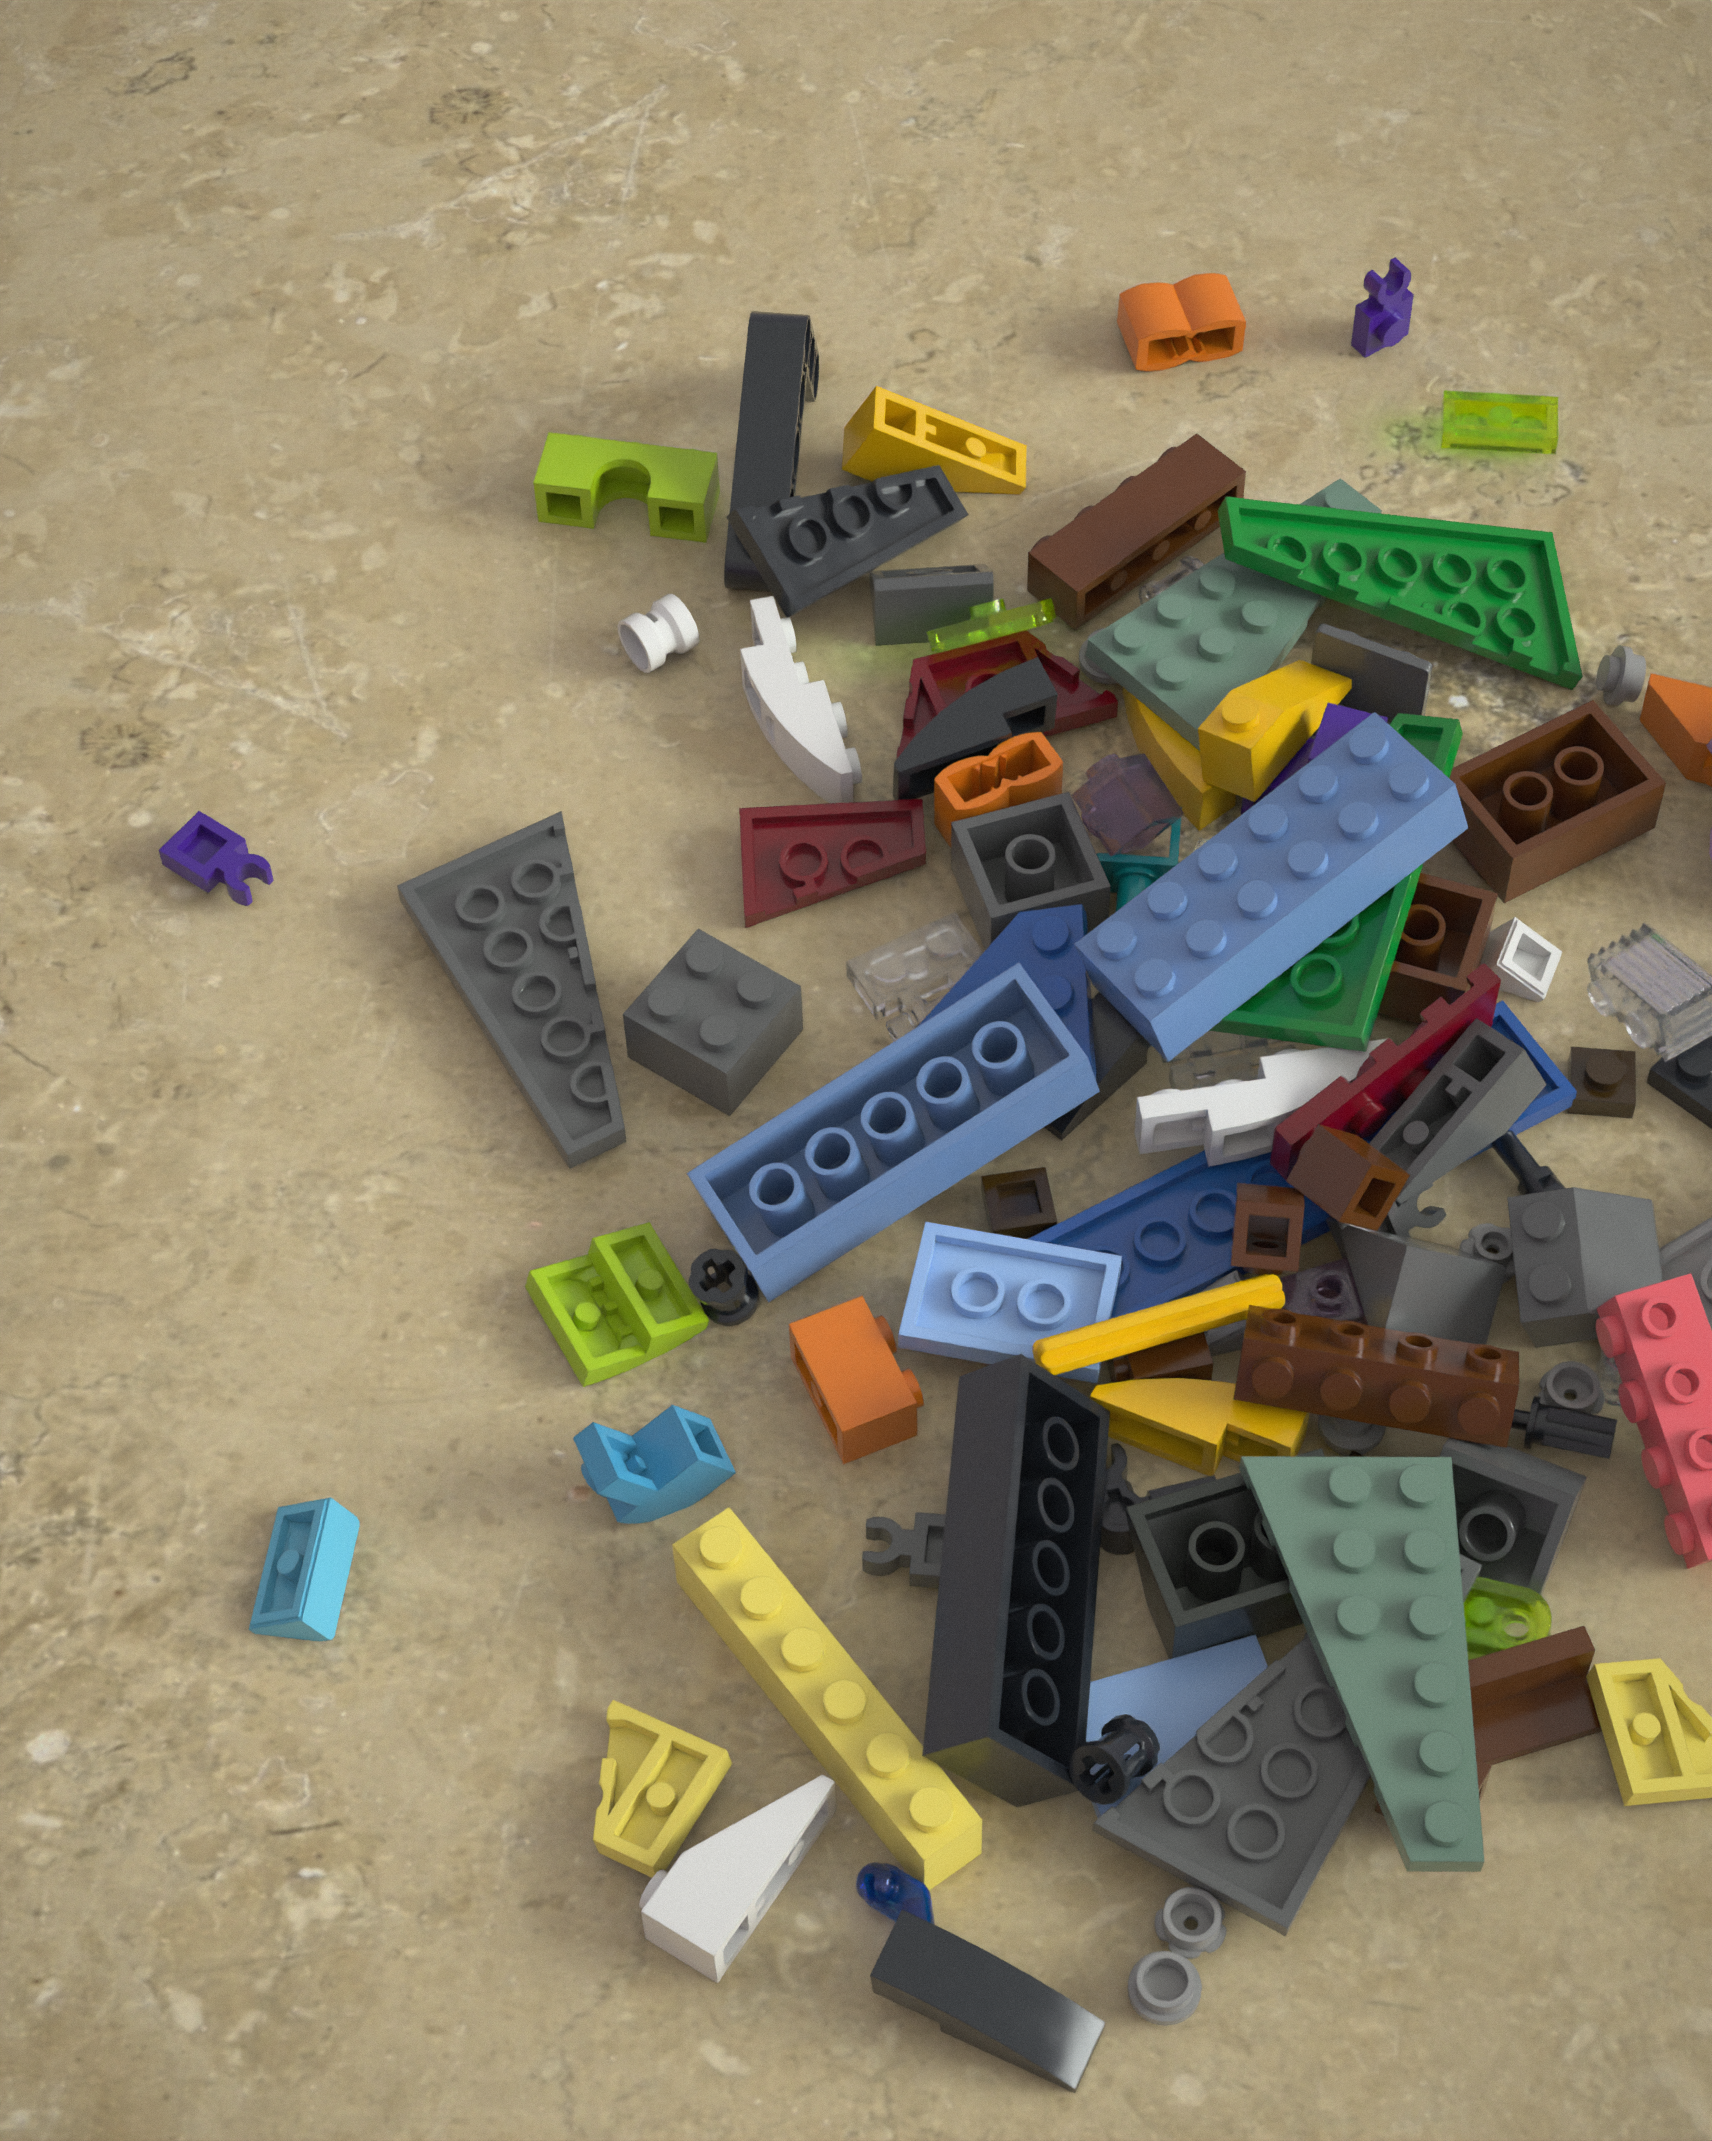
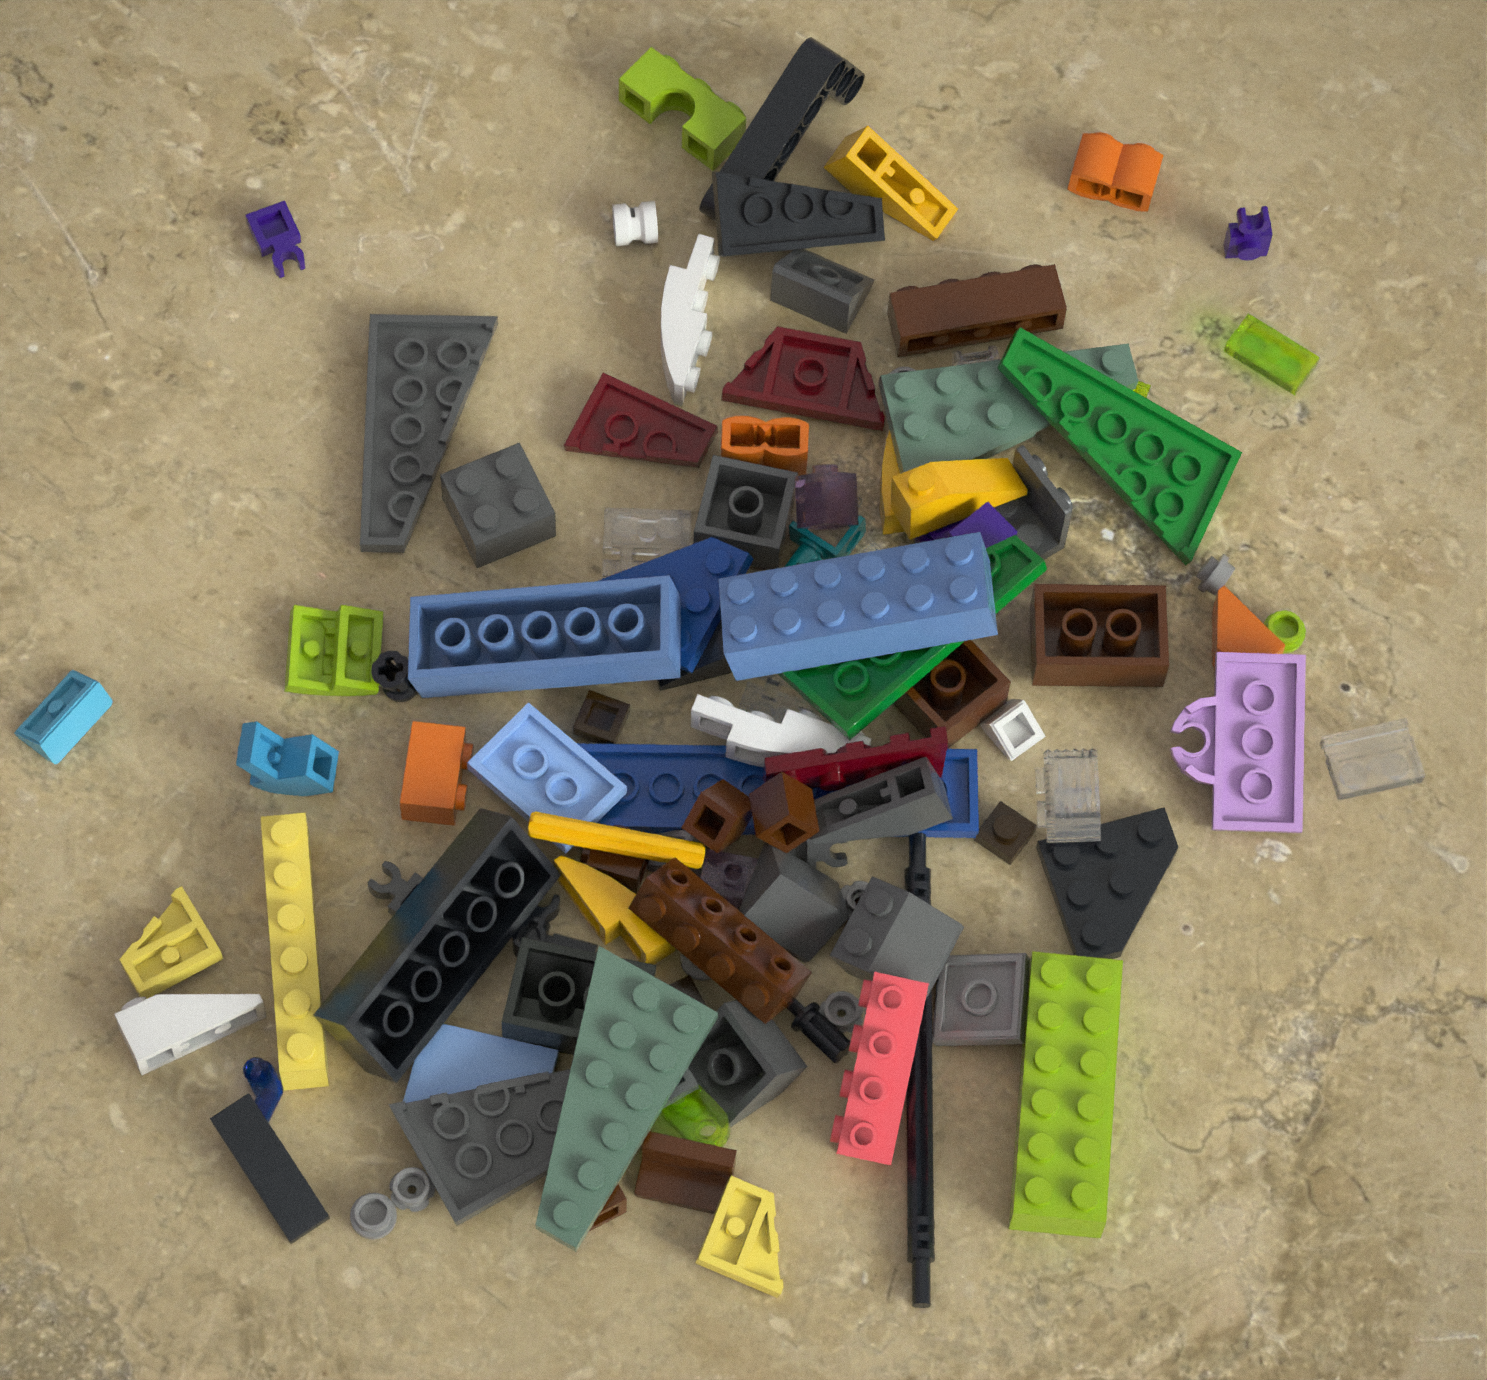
camera: 25 degrees right, 10 degrees up
(975, 724) = (775, 396): black slope -> none
(990, 622) = (837, 329): clear neon green plate -> none
(1114, 1777) = (421, 1076): black bush -> none

